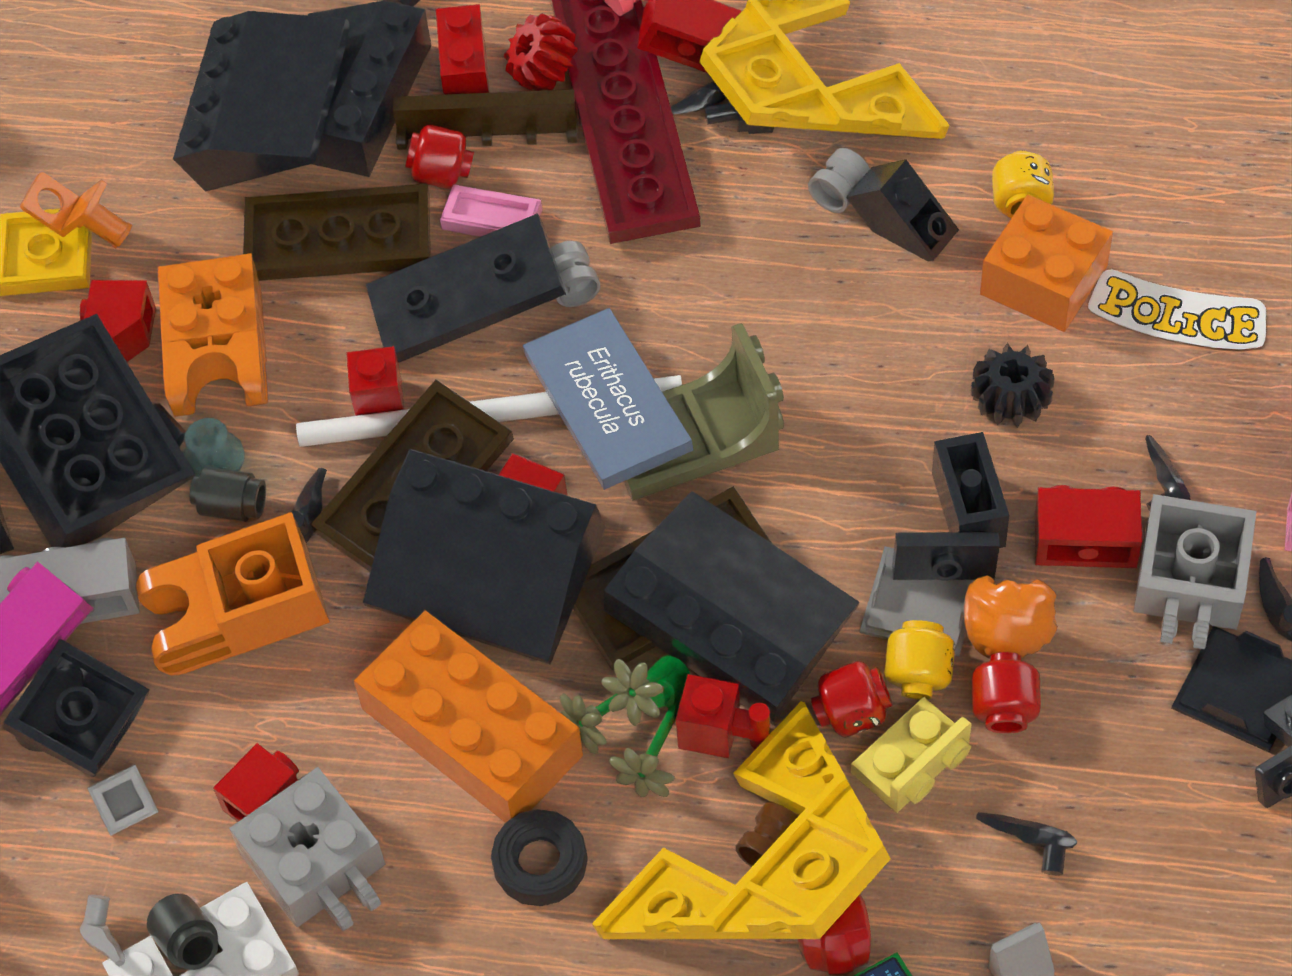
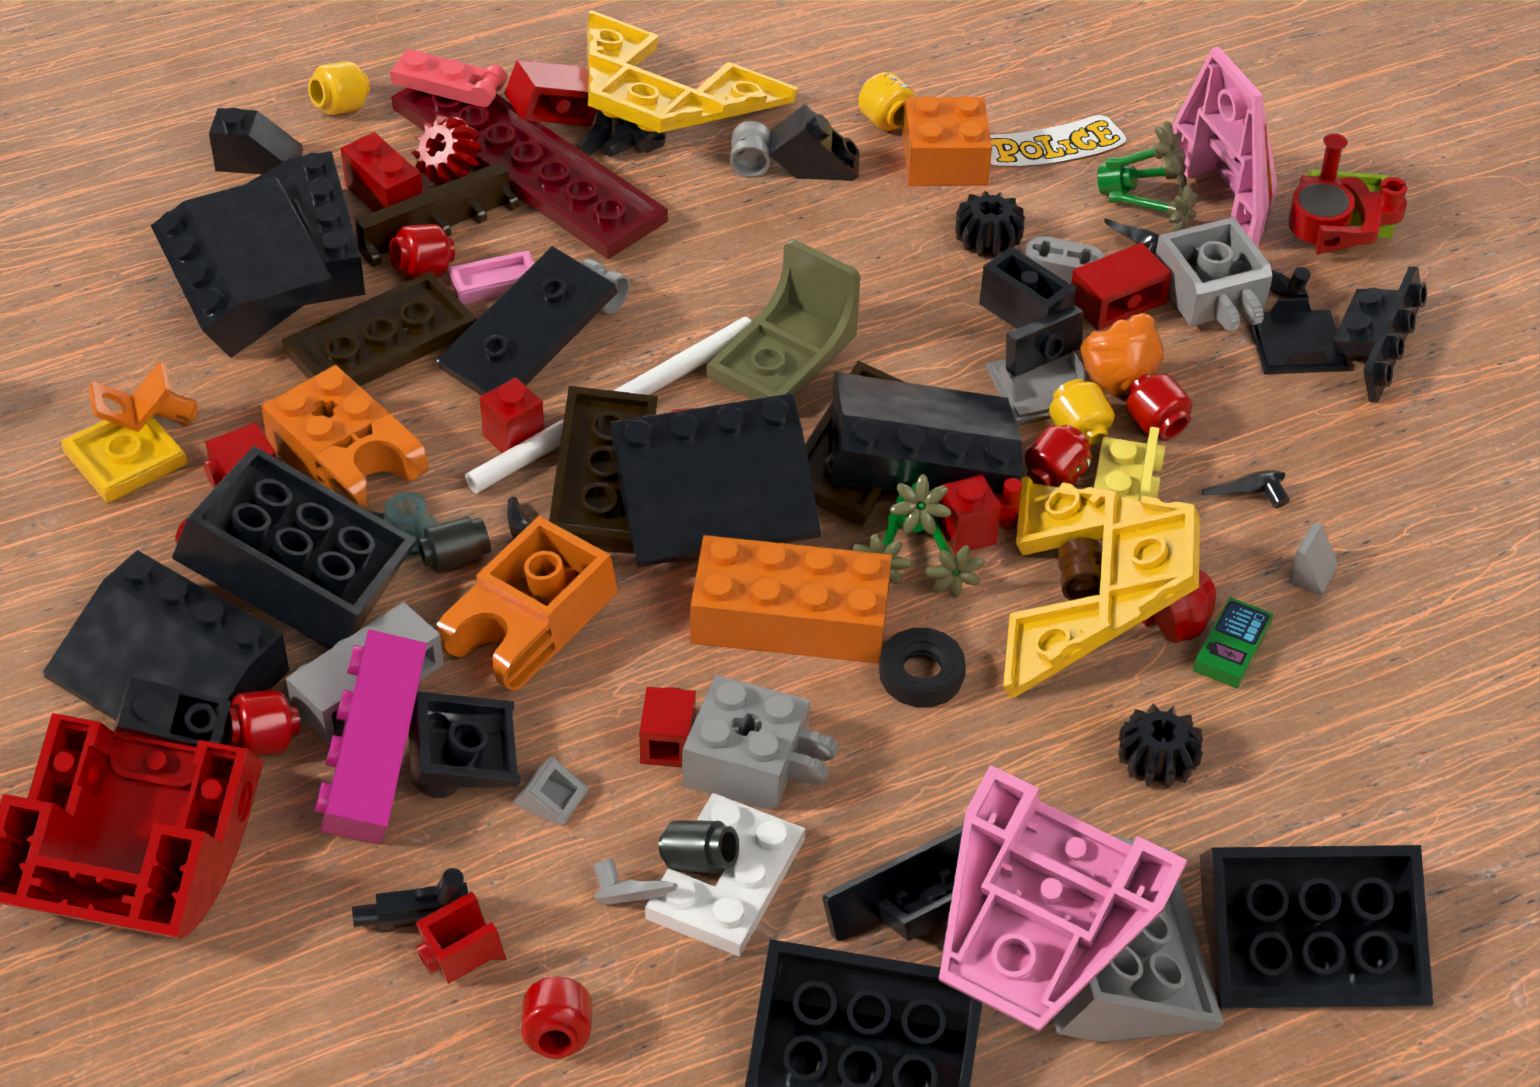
camera: 40 degrees left, 10 degrees down
(607, 398) = (708, 347): sand blue tile -> none
(1066, 461) = (1061, 255): none -> light grey beam
(1203, 395) = (1118, 178): none -> plant

